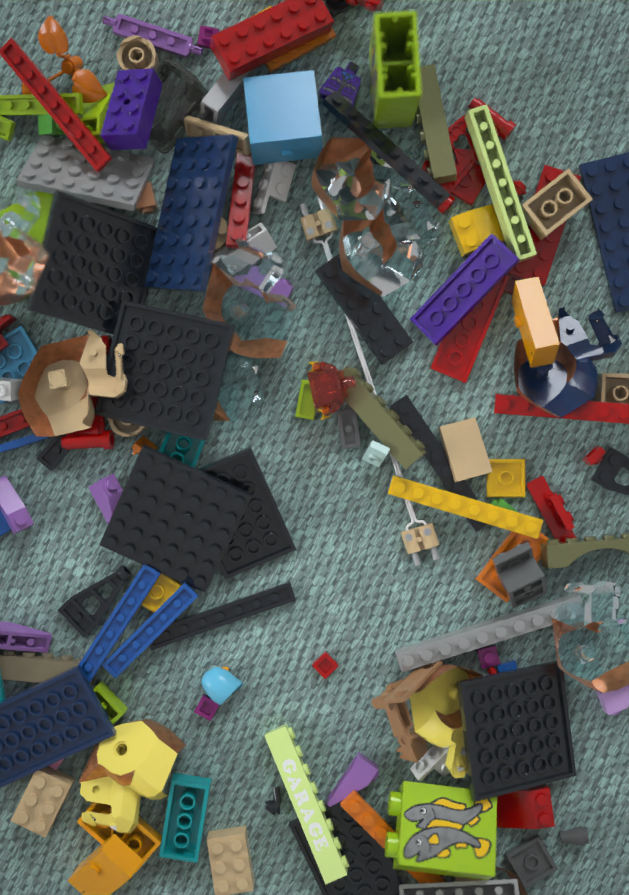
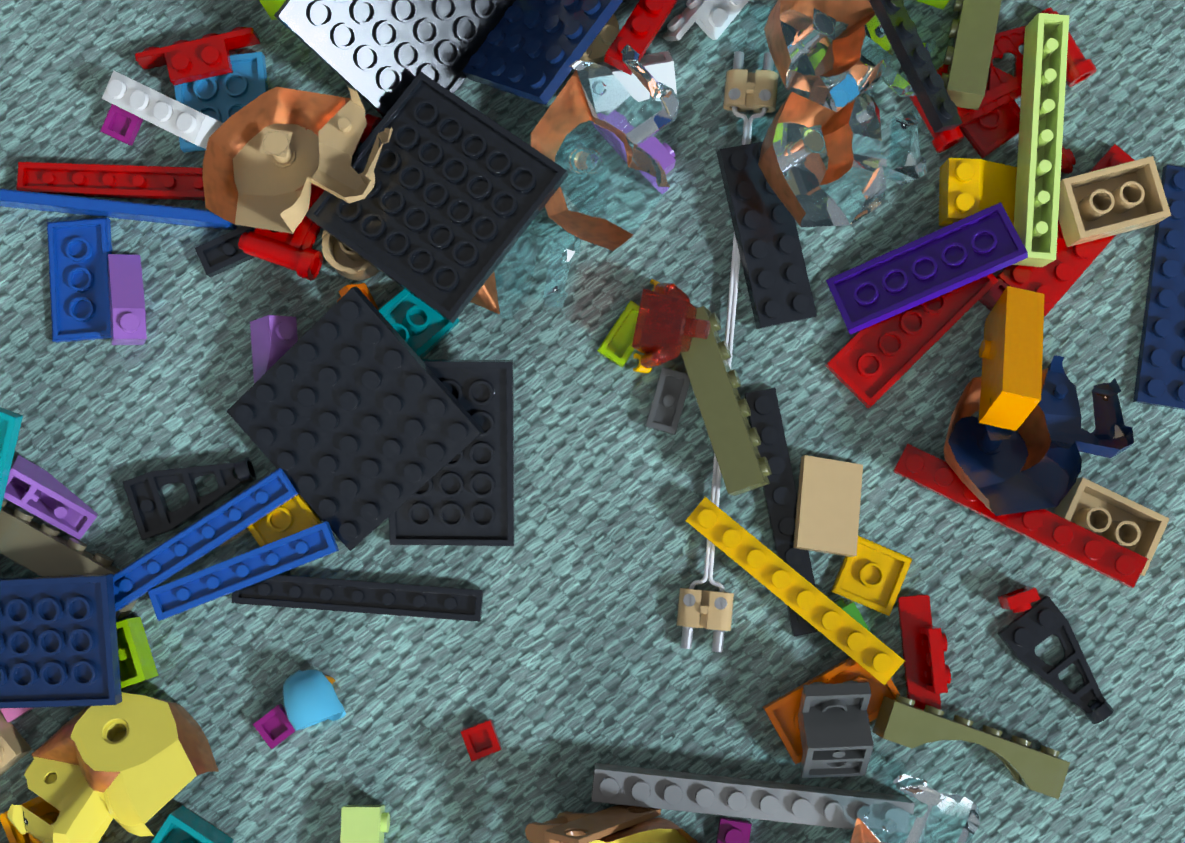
camera: 20 degrees right, 5 degrees down
(375, 453) = (693, 453): light aqua plate -> none

